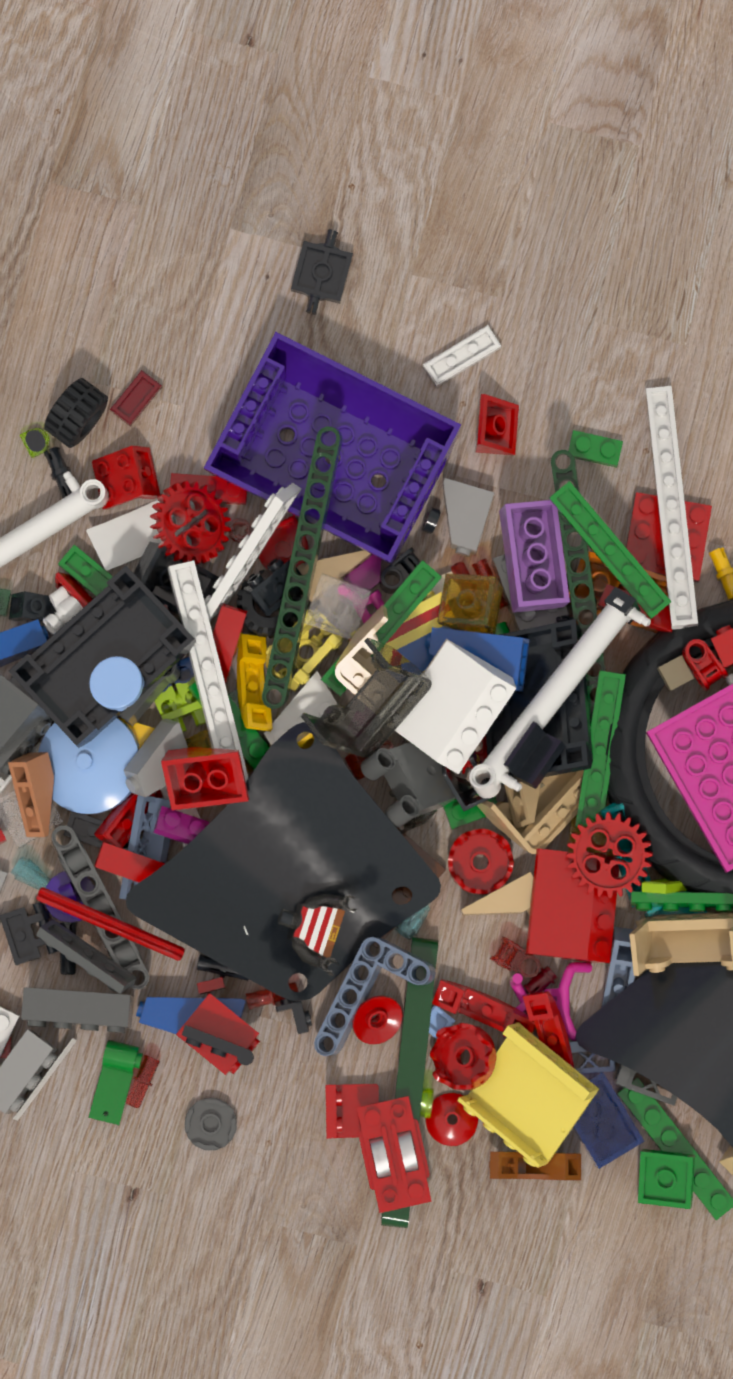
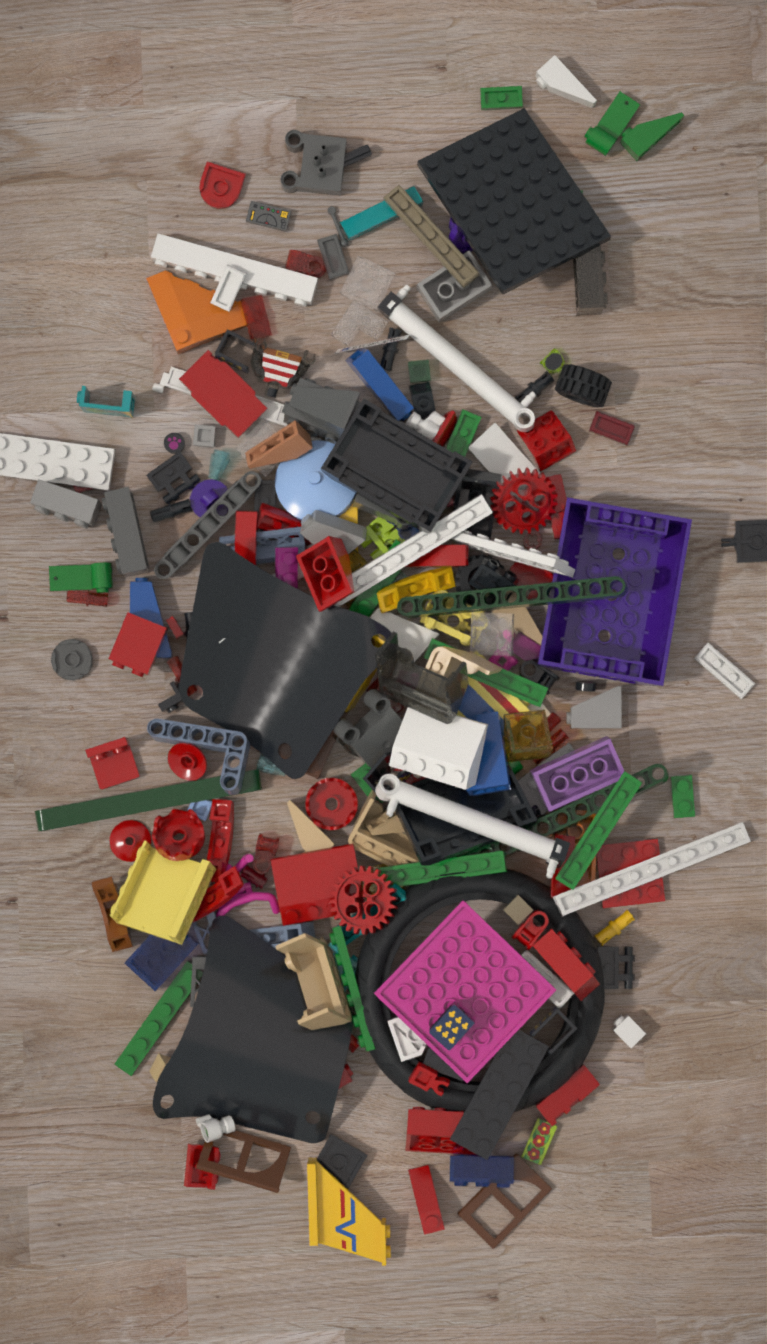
camera: 75 degrees right, 5 degrees up
(45, 1079) = (67, 524): white sticker -> none
(86, 956) = (167, 526): dark grey plate -> none
(110, 923) = (196, 536): red axle -> none
(116, 683) = (378, 483): light blue tile -> none
(219, 1046) = (127, 646): black plate -> none
(316, 928) = (240, 693): torso -> none
(394, 1154) = (89, 804): red piece -> none
(426, 1103) = (136, 817): clear neon green tile -> none
(496, 426) = (676, 715): red slope -> none
(533, 756) = (417, 818): black panel -> none
(662, 886) = (351, 948): lime tile -> none
(666, 1178) = (133, 1016): green plate -> none

